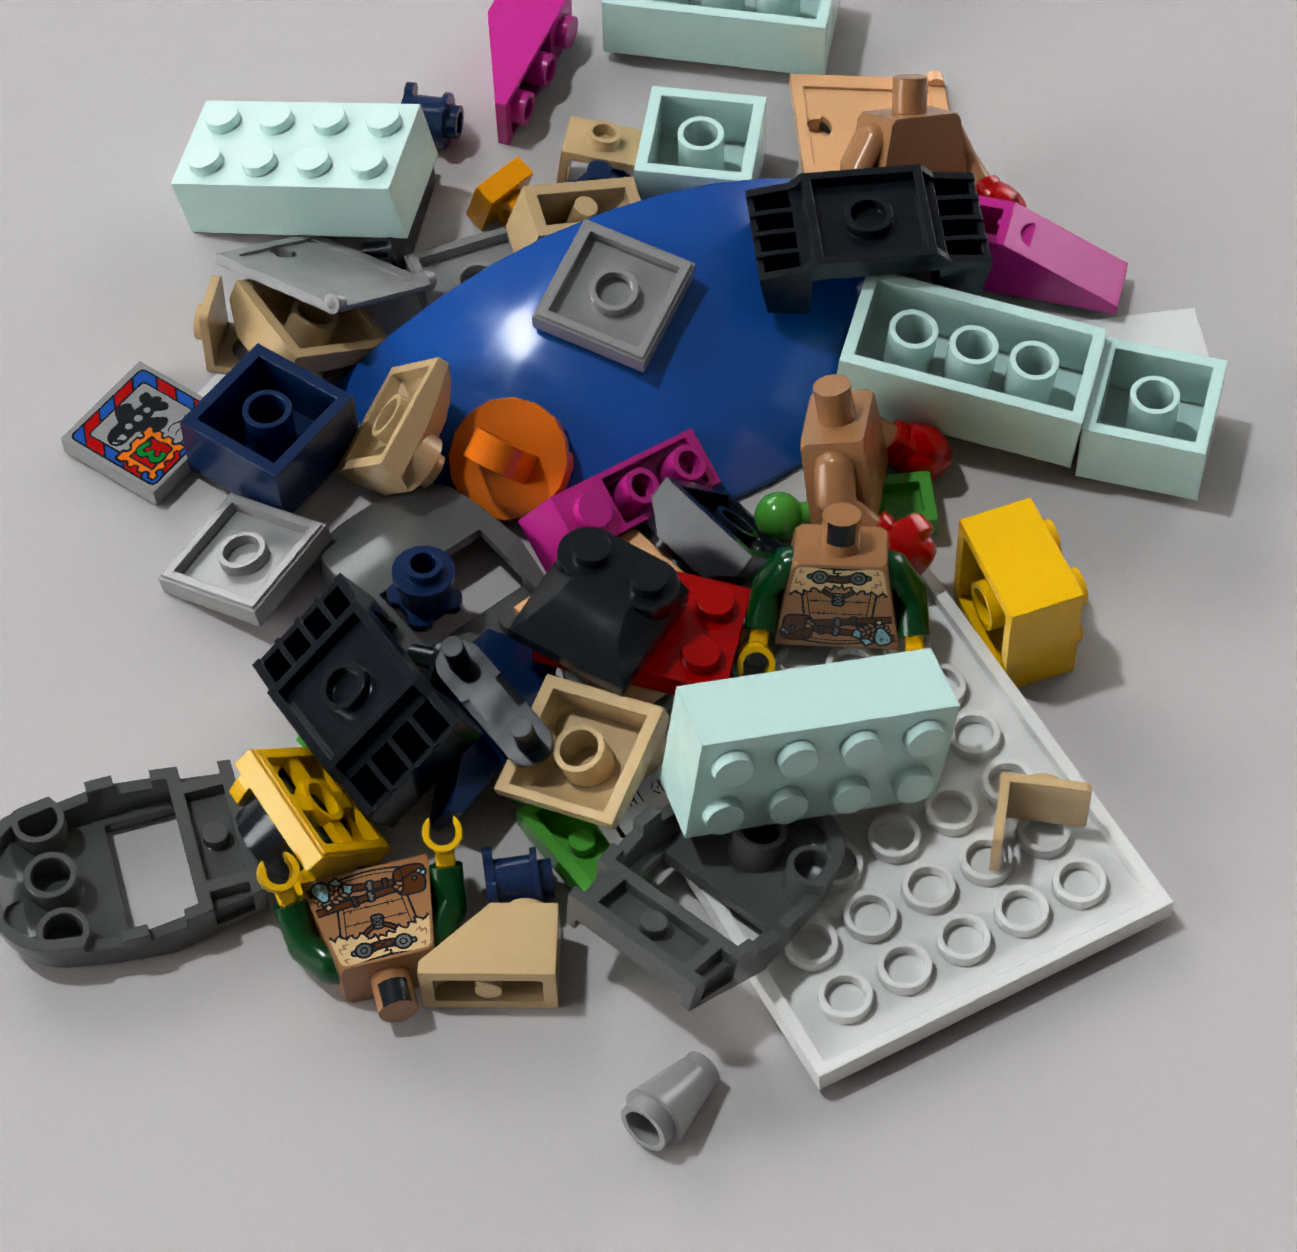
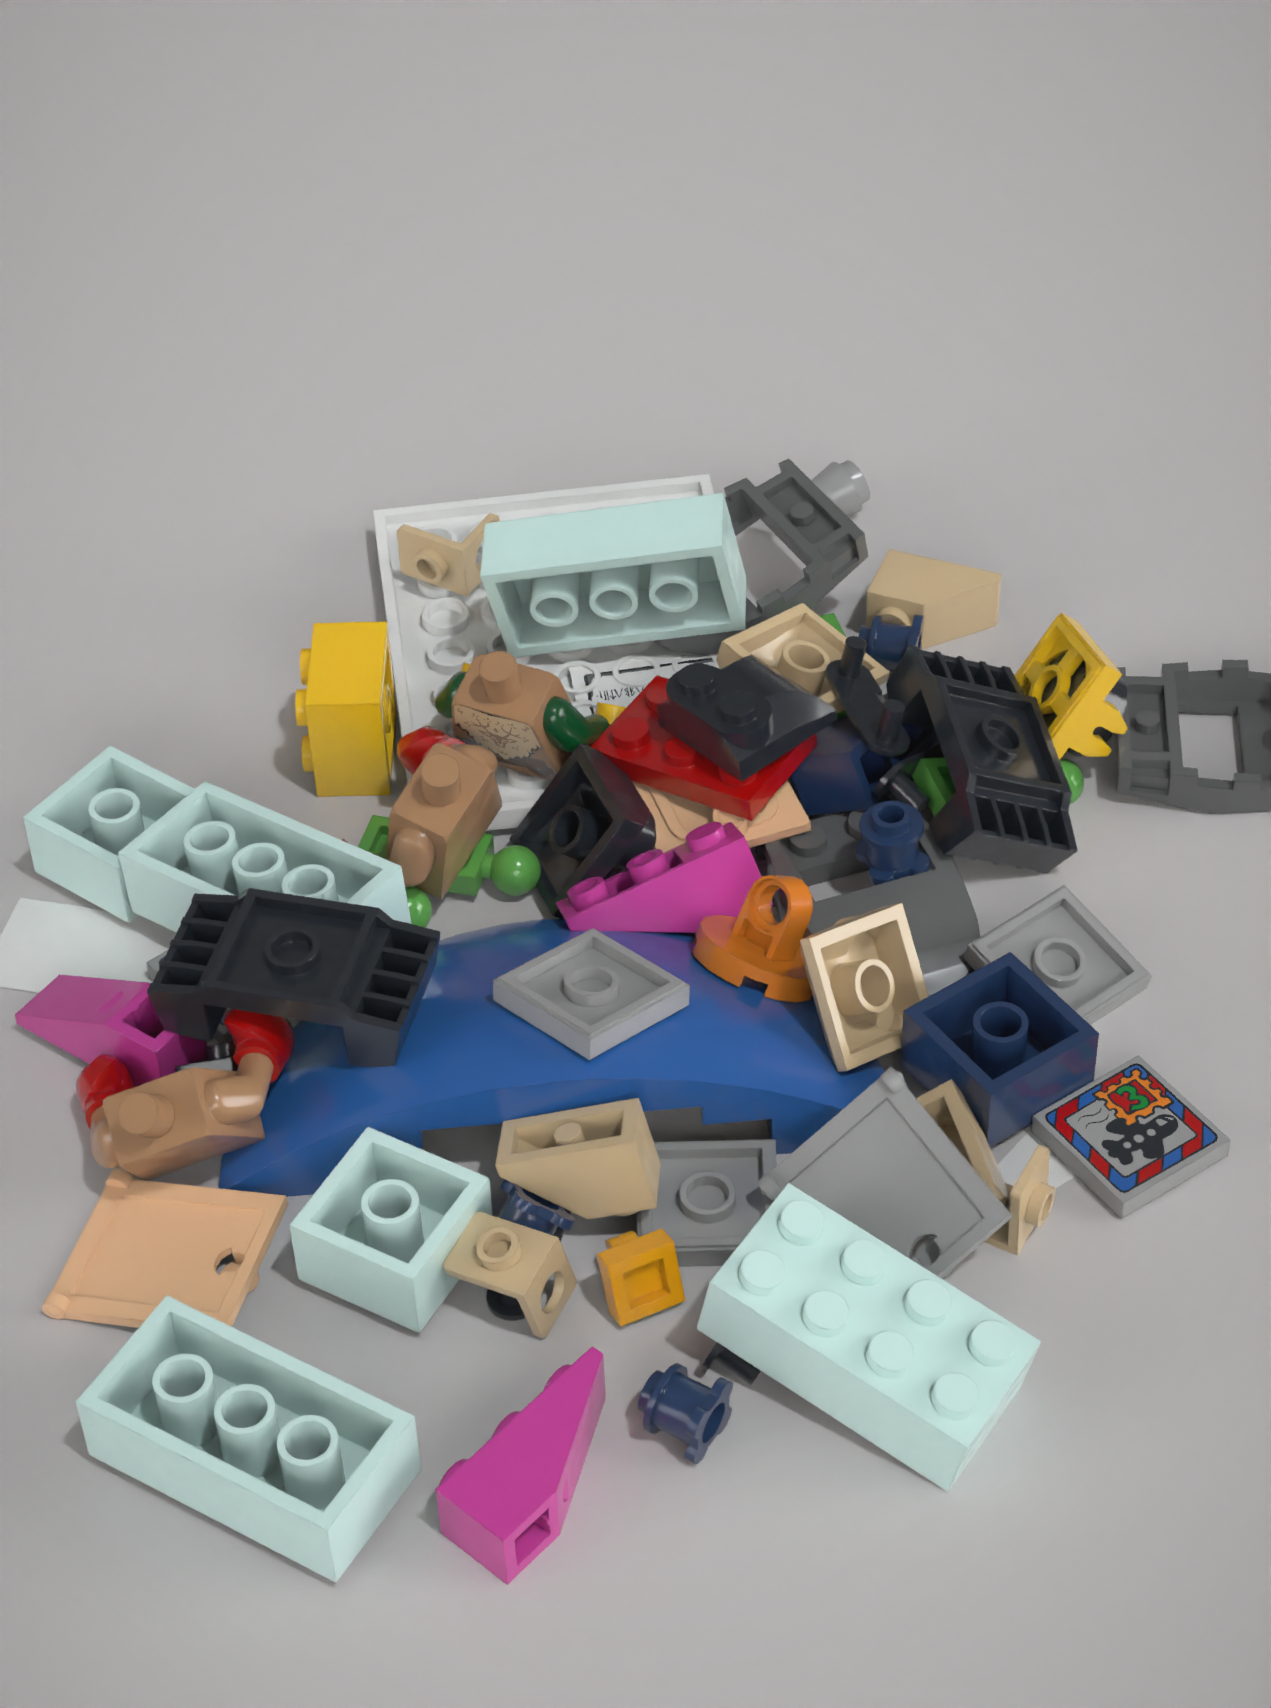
camera: 160 degrees left, 10 degrees down
(373, 923) = (1011, 623): torso -> none

